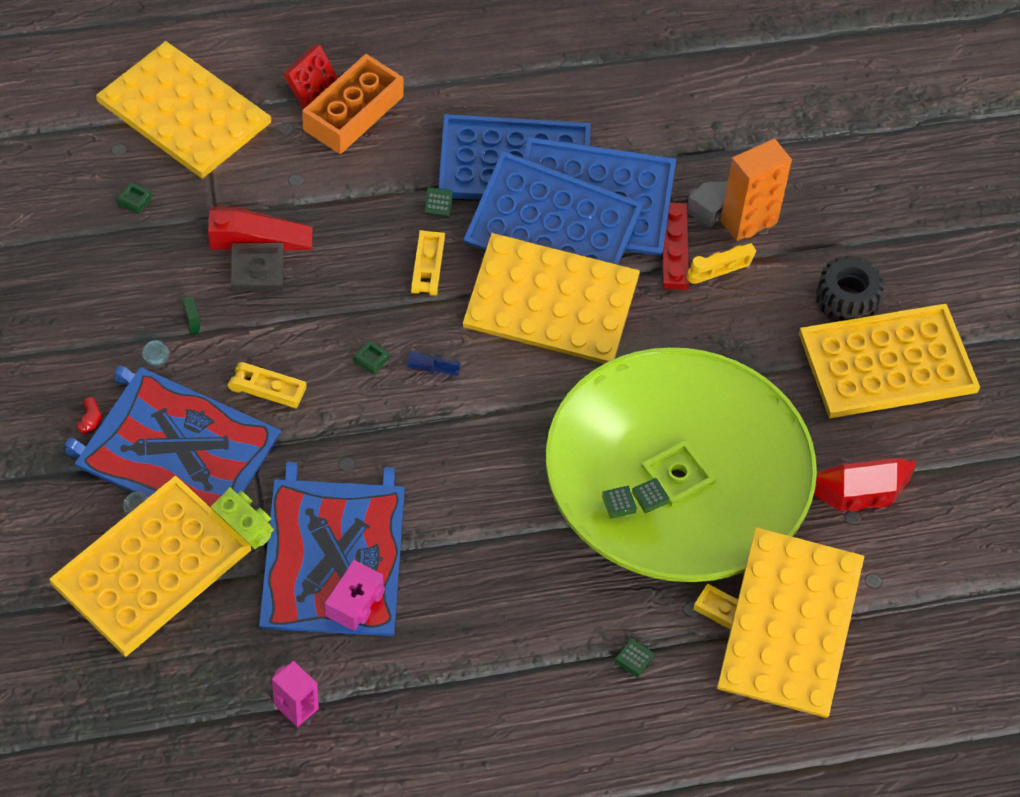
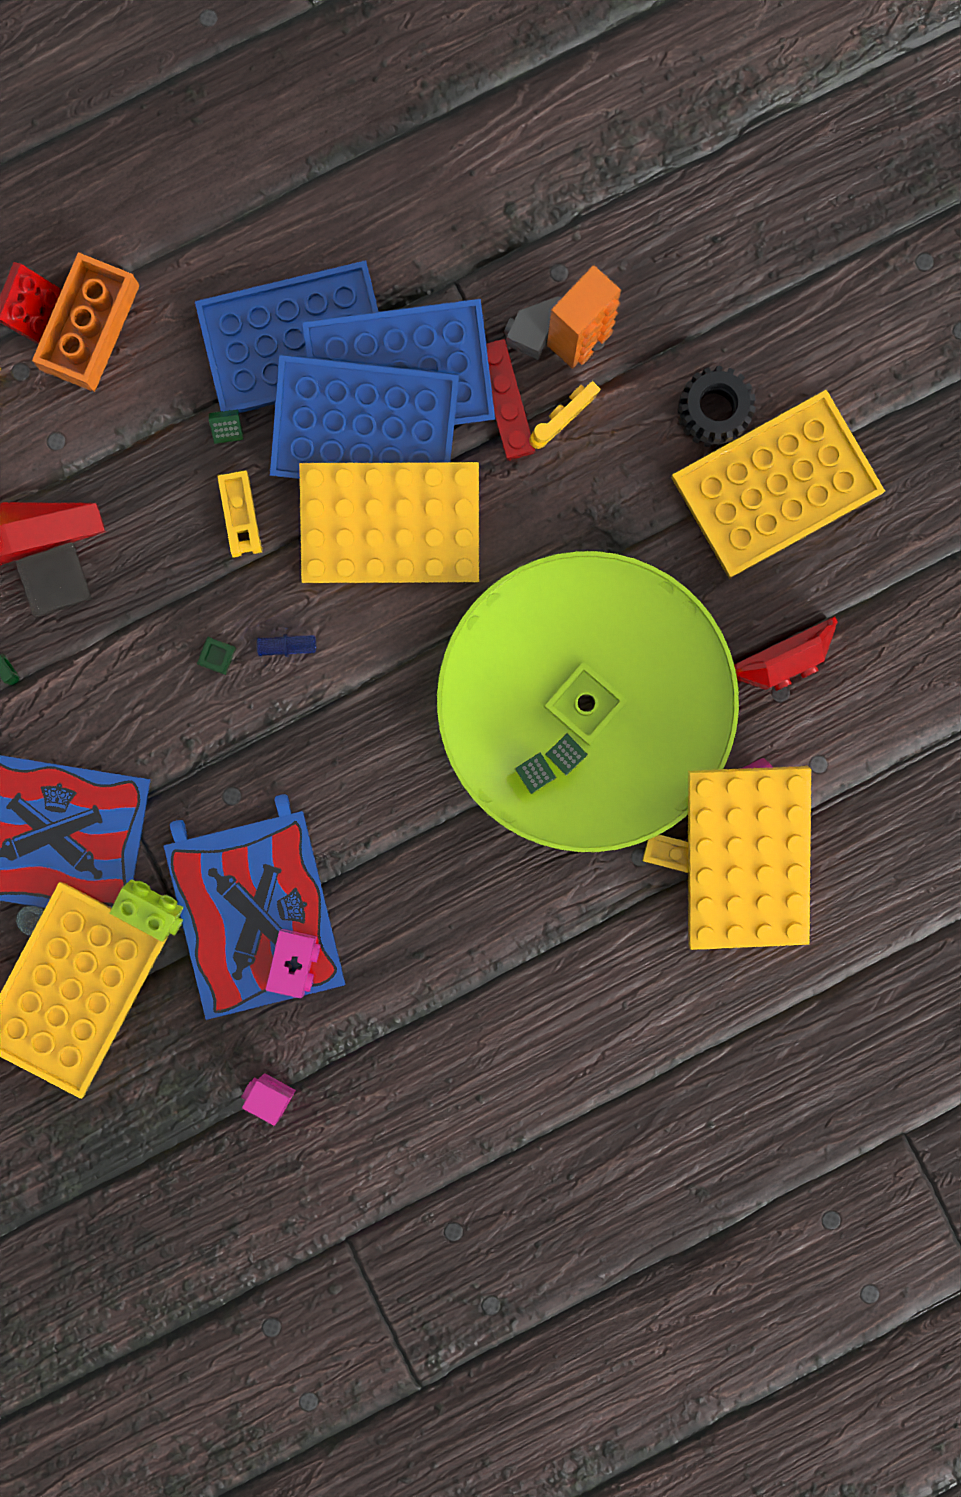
camera: 10 degrees left, 30 degrees up
(267, 384) = (118, 730): yellow plate -> none
(634, 658) = (596, 937): dark green tile -> none

